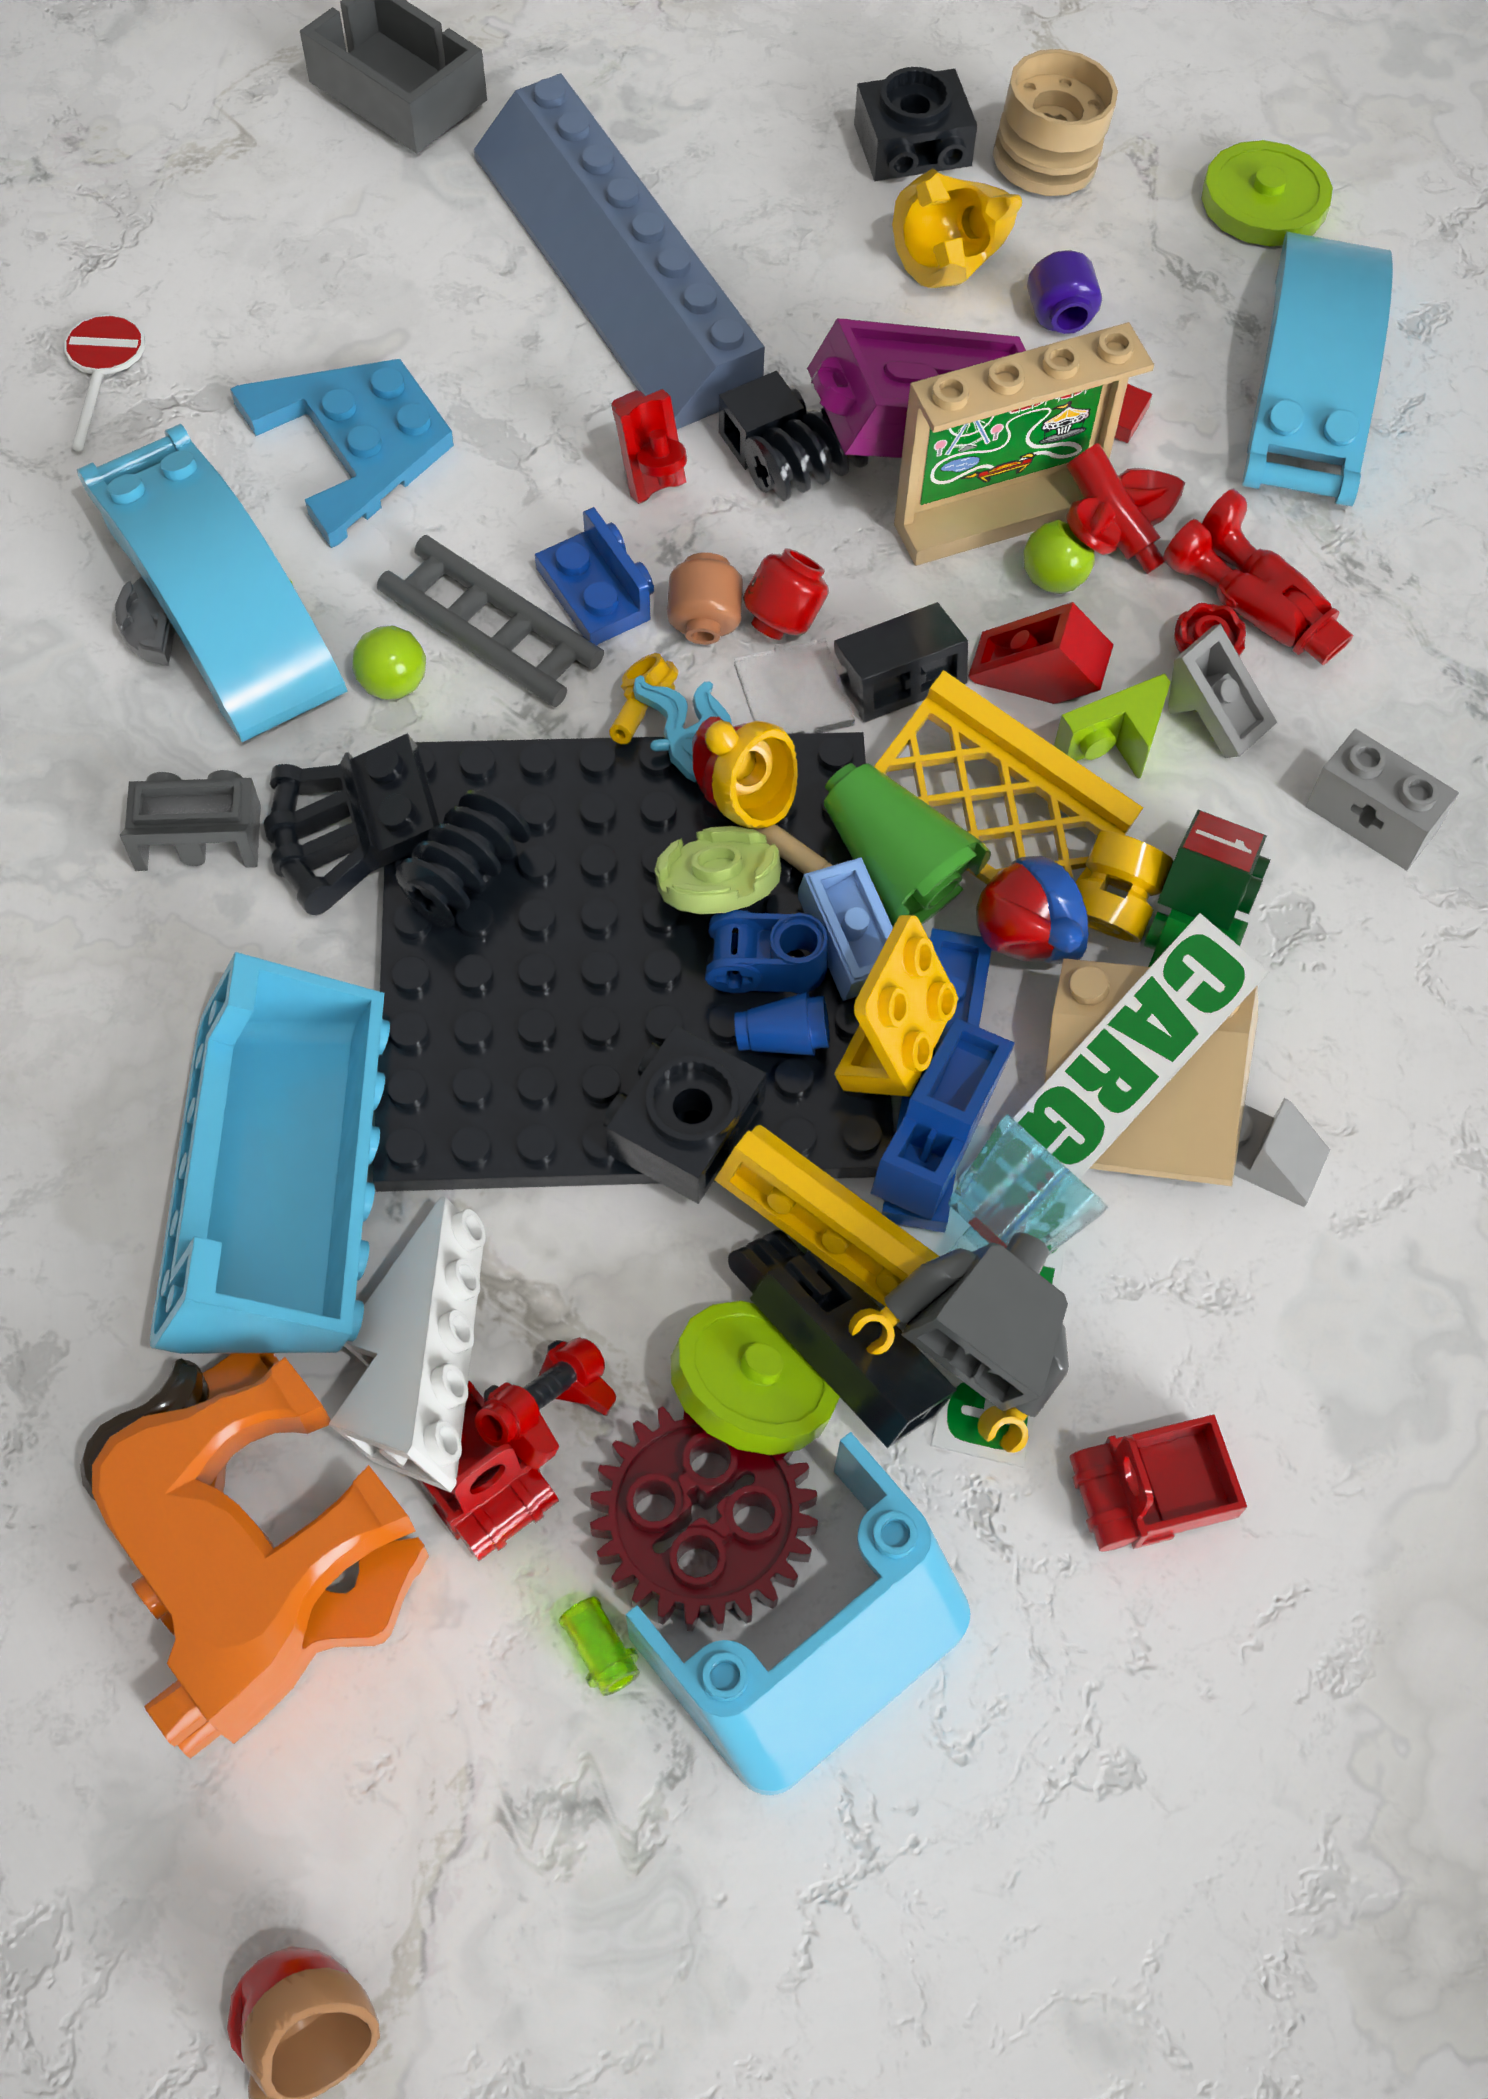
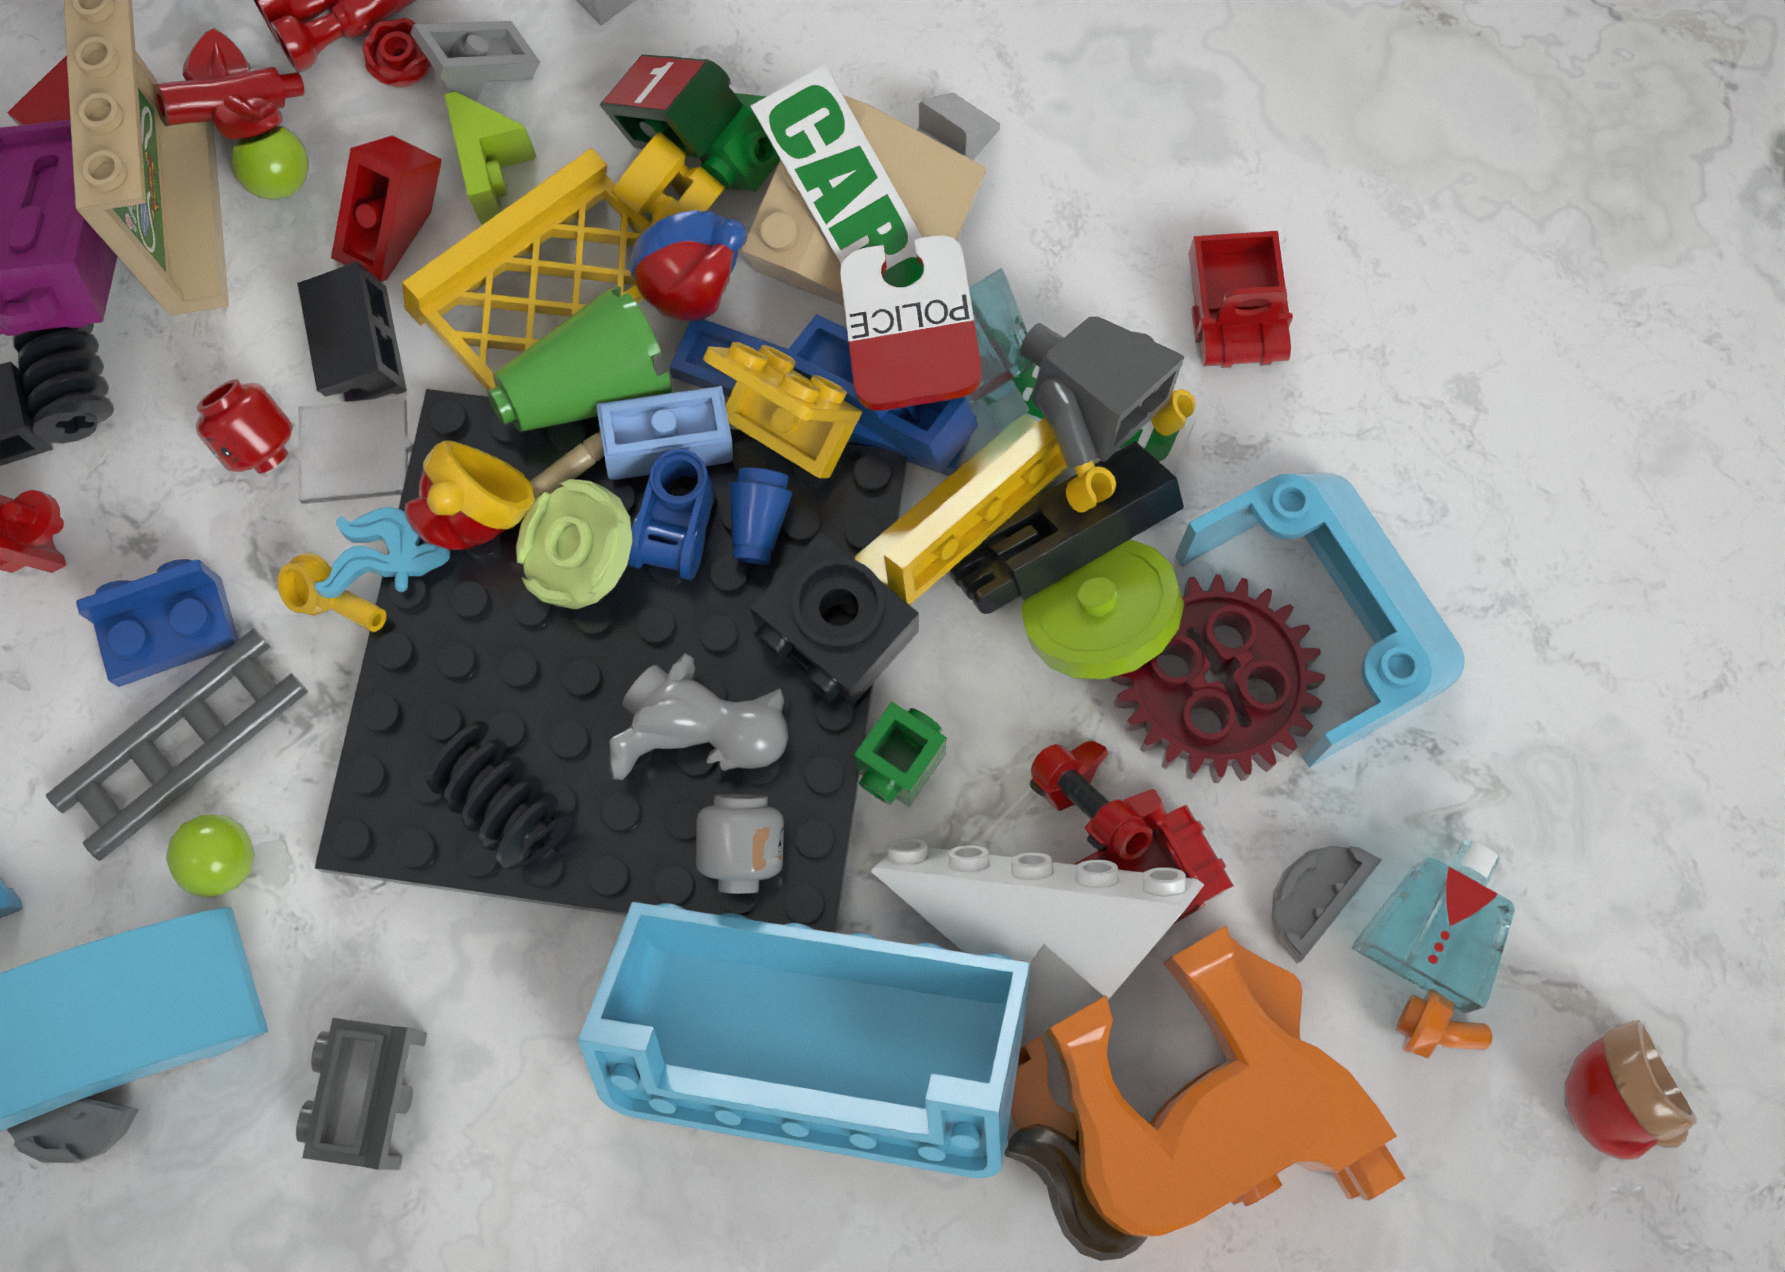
camera: 75 degrees left, 10 degrees up
(352, 1786) = (1428, 1023): none -> orange plate
(388, 811) = (398, 874): black plate -> none
(448, 1066) = (739, 842): none -> light grey head
(461, 1792) = (1444, 927): none -> clear light blue torso
(484, 1651) = (1315, 893): none -> flat silver plate
(563, 1203) = (900, 754): none -> green brick
(566, 992) = (682, 713): none -> light grey animal
(600, 1647) = (1323, 789): clear neon green pin -> none
(705, 598) = (222, 510): nougat head -> none
(997, 1122) = (913, 339): none -> piece

